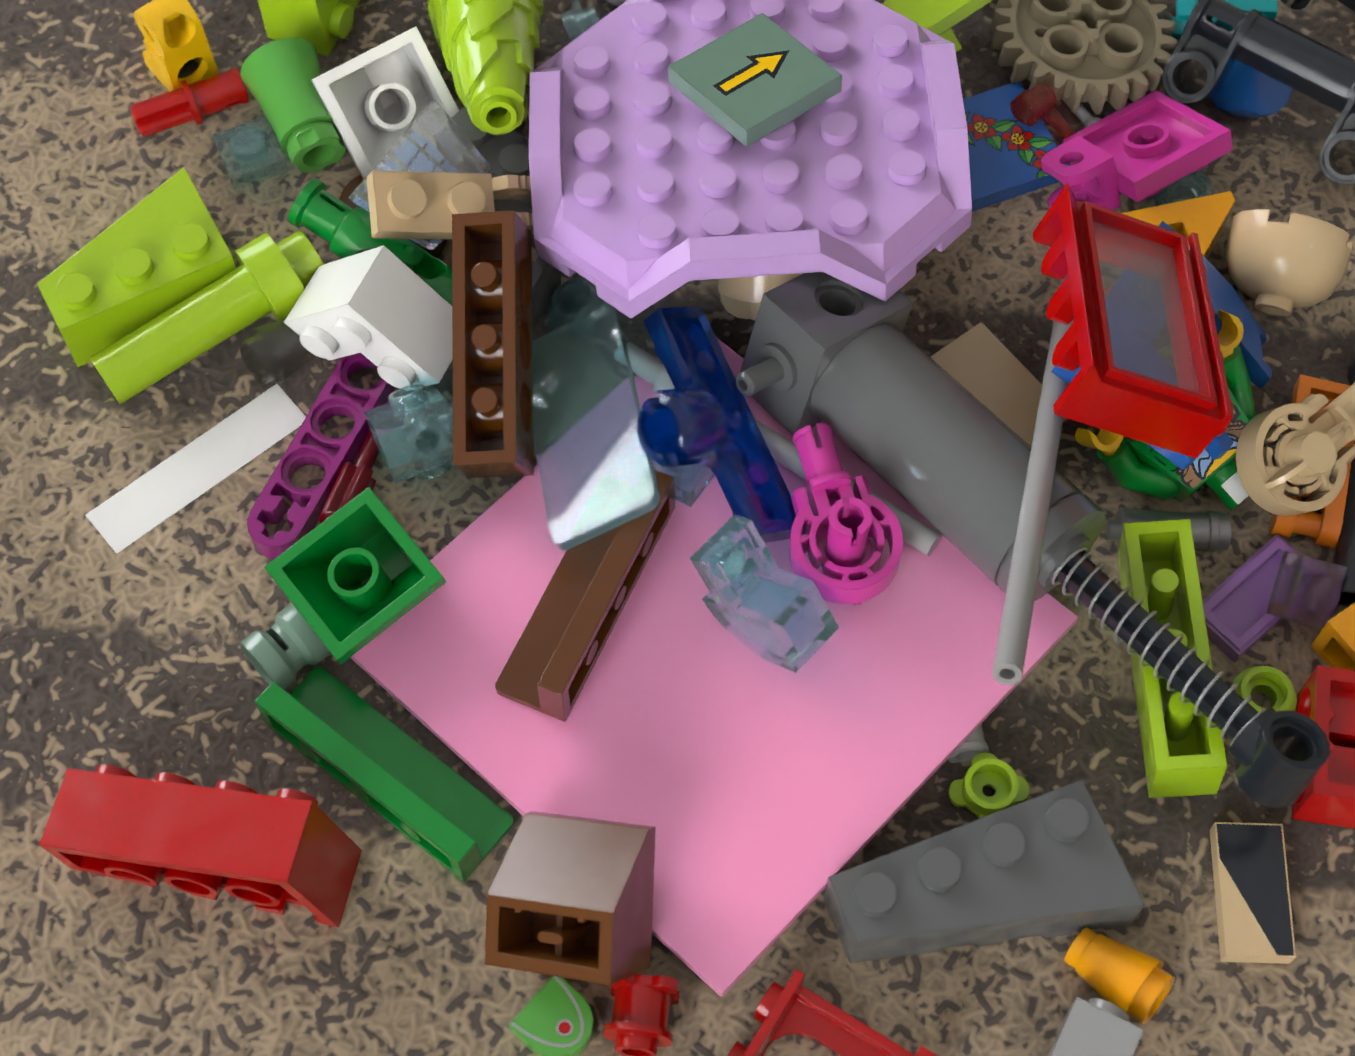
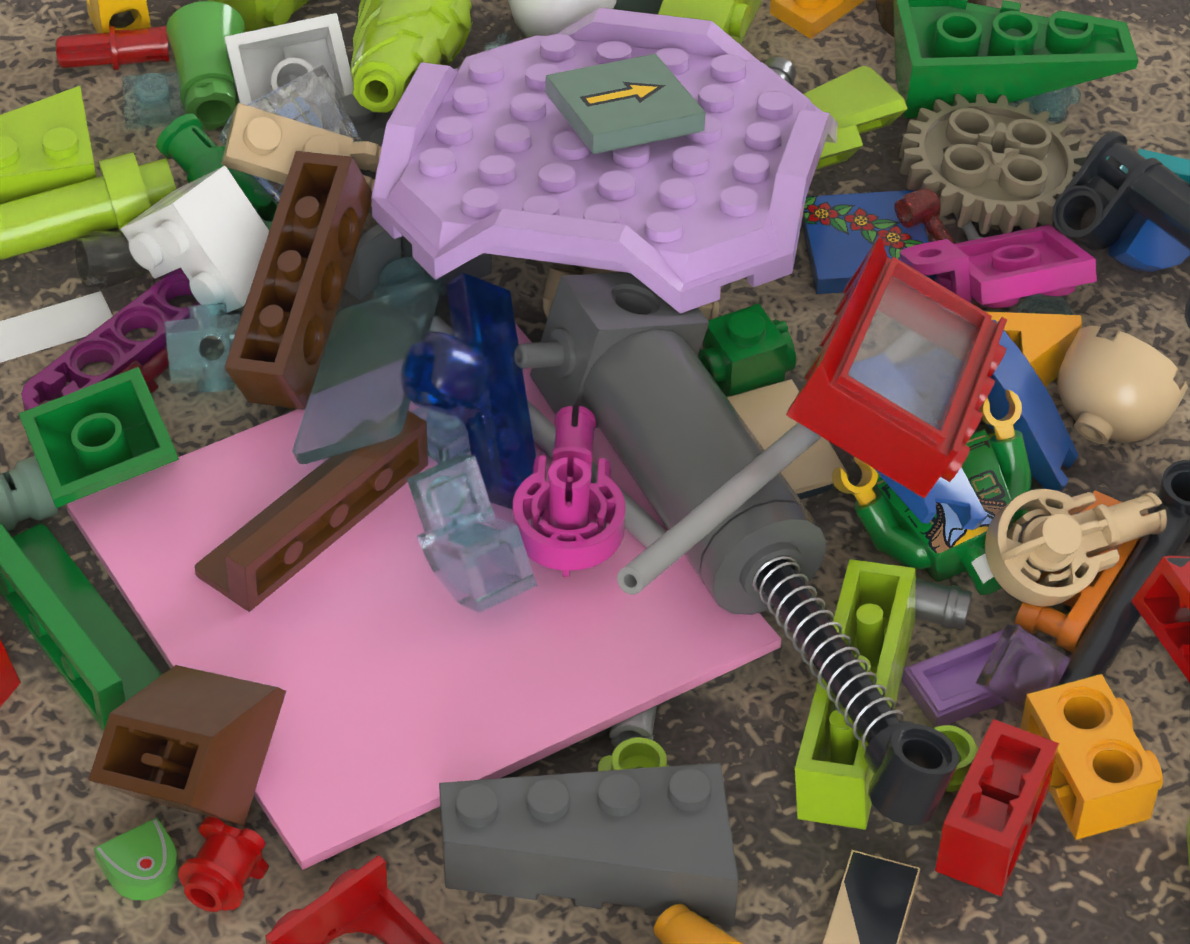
camera: 15 degrees right, 15 degrees down
(941, 306) = (747, 350): none -> green brick

